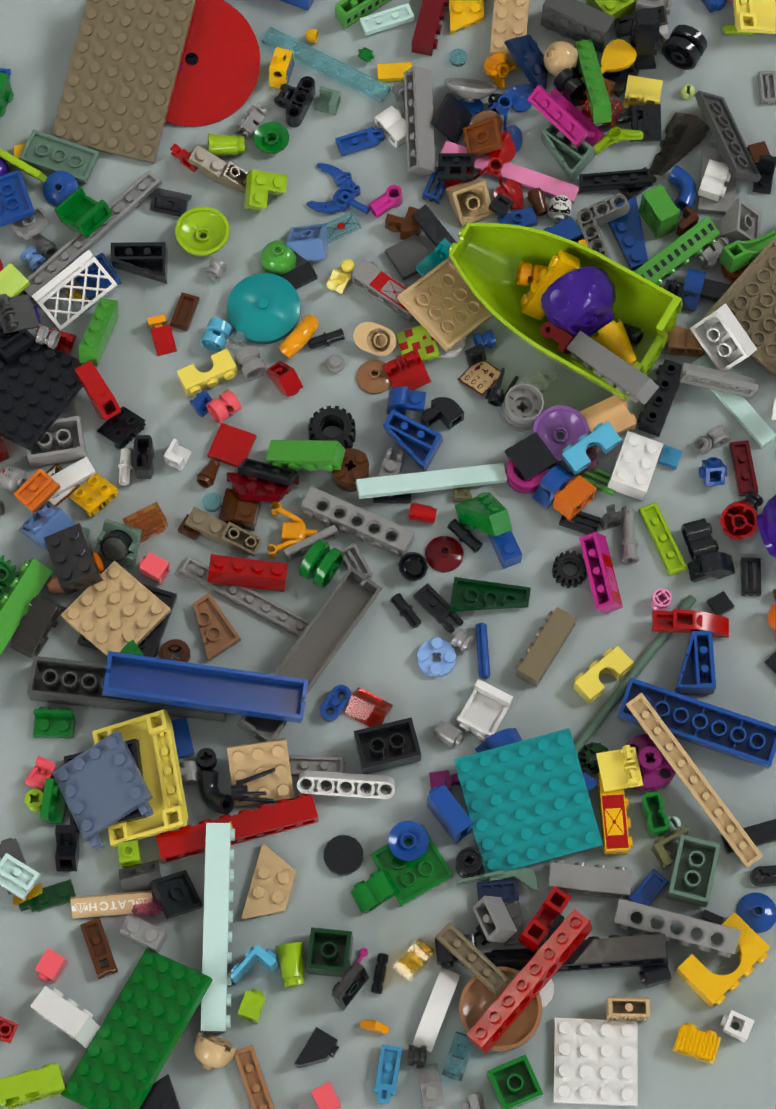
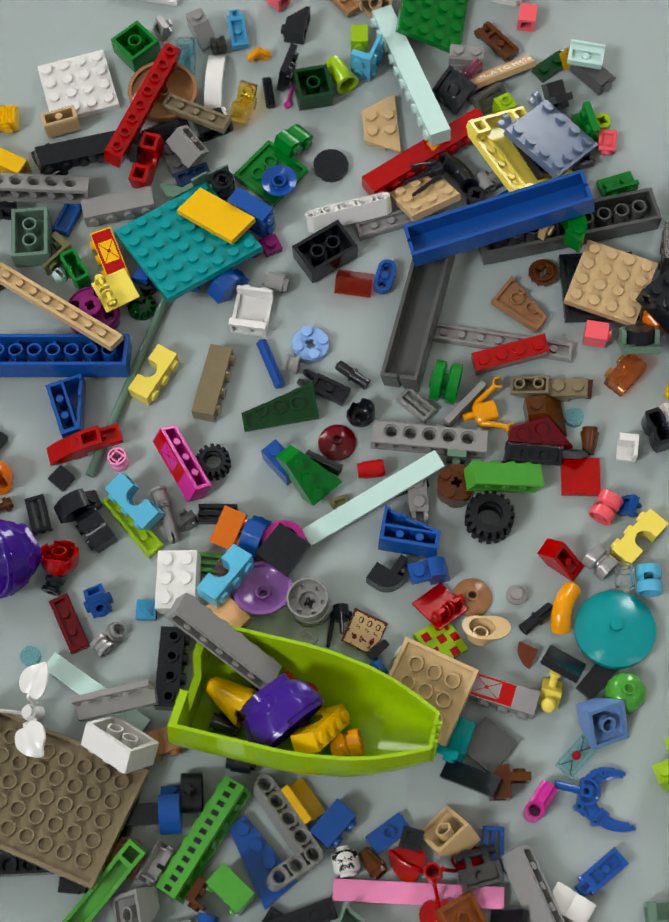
camera: 165 degrees right, 0 degrees up
(229, 461) = (575, 454): none -> black tile
(321, 290) = (563, 663): none -> black tile
(340, 493) = (456, 456): none -> sand green tile
(347, 315) = (526, 654): none -> copper tile
(490, 813) = (216, 216): none -> yellow tile
(651, 532) = (122, 491): none -> medium azure arch

